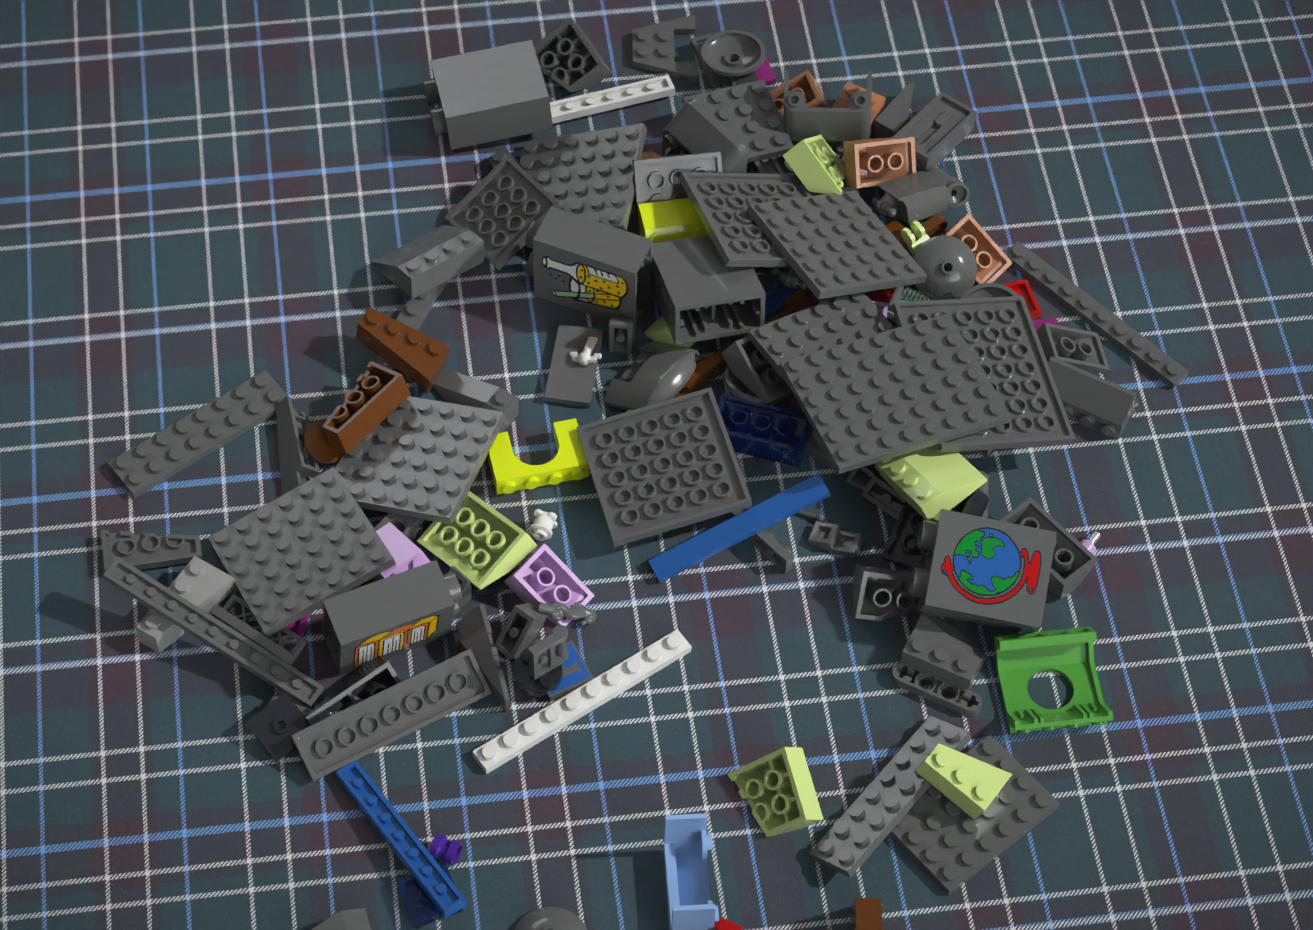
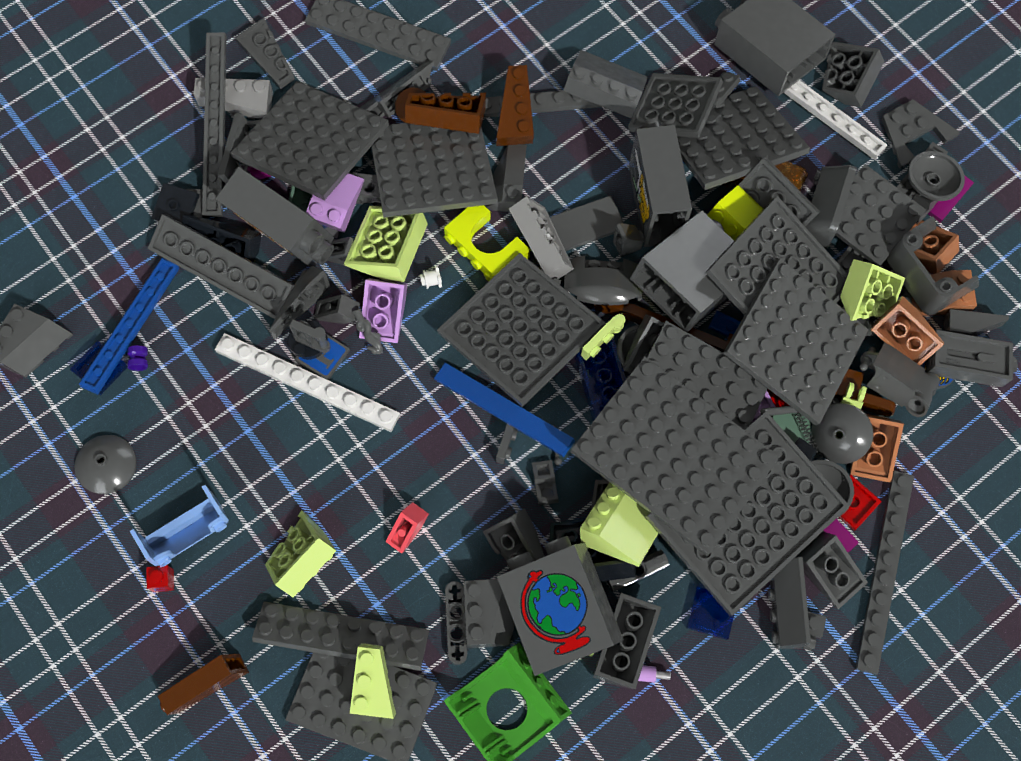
camera: 60 degrees right, 15 degrees up
(572, 401) = (541, 237): none -> light grey wedge
(585, 357) = (589, 227): white piece -> none
(724, 398) = (604, 335): none -> yellowish green hinge
(810, 681) = (407, 527): none -> coral slope
(1054, 470) = (709, 616): none -> clear blue plate

